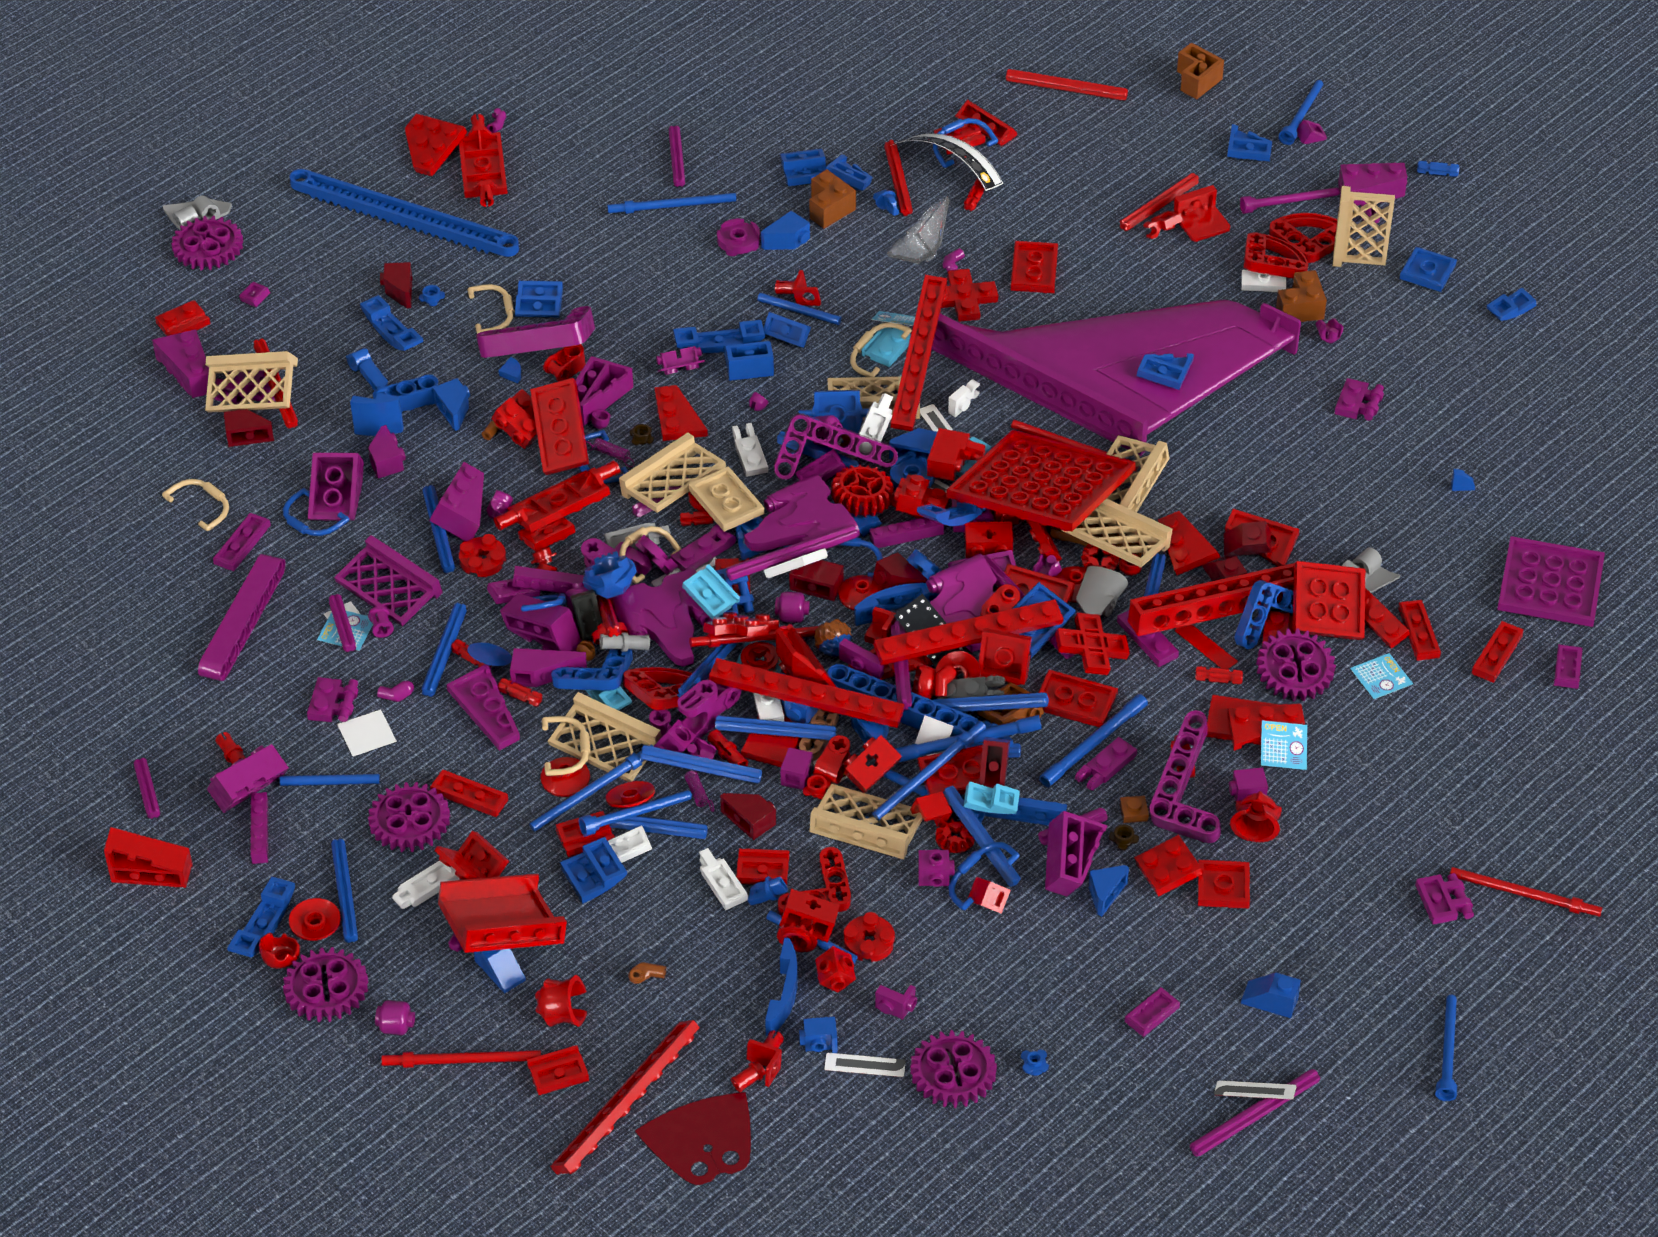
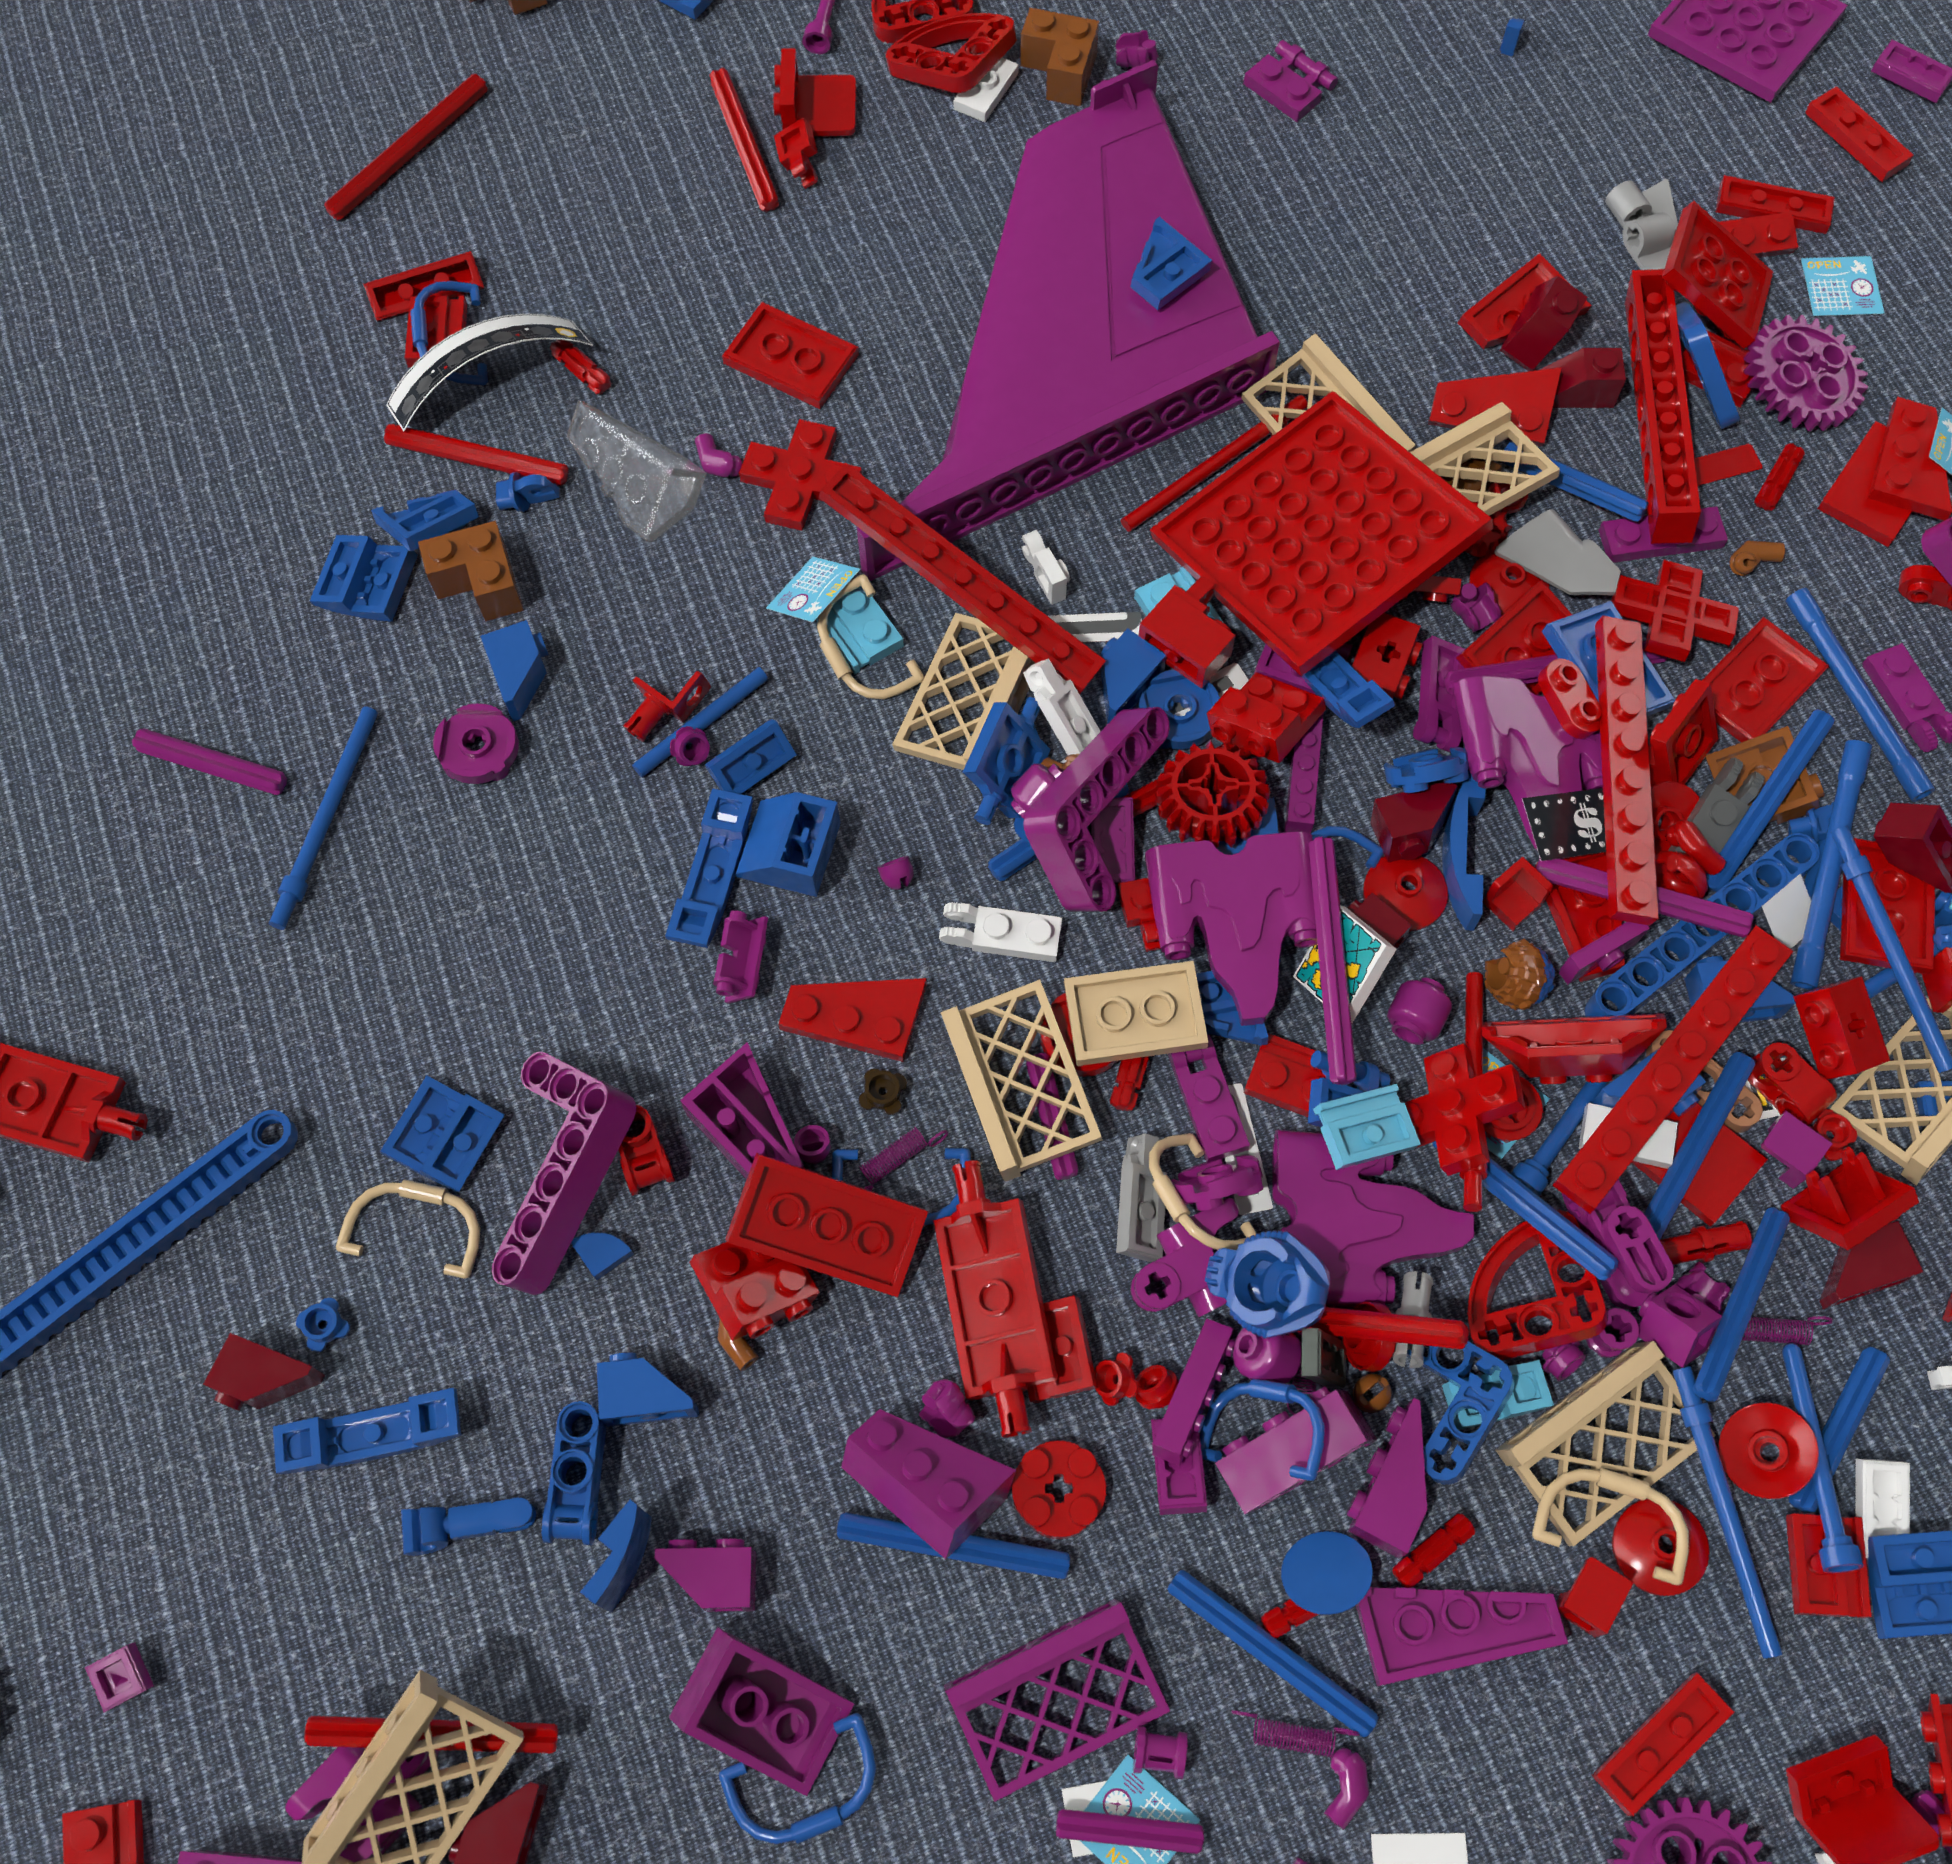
camera: 65 degrees left, 20 degrees up
(414, 668) = (1323, 1735): none -> magenta piece
(524, 749) = (1594, 1598): none -> red panel
(638, 710) = (1563, 1360): none -> magenta plate
(777, 302) = (699, 746): none -> magenta plate
(780, 794) = (1849, 1201): none -> red plate
(1158, 675) = (1752, 553): none -> dark orange arm

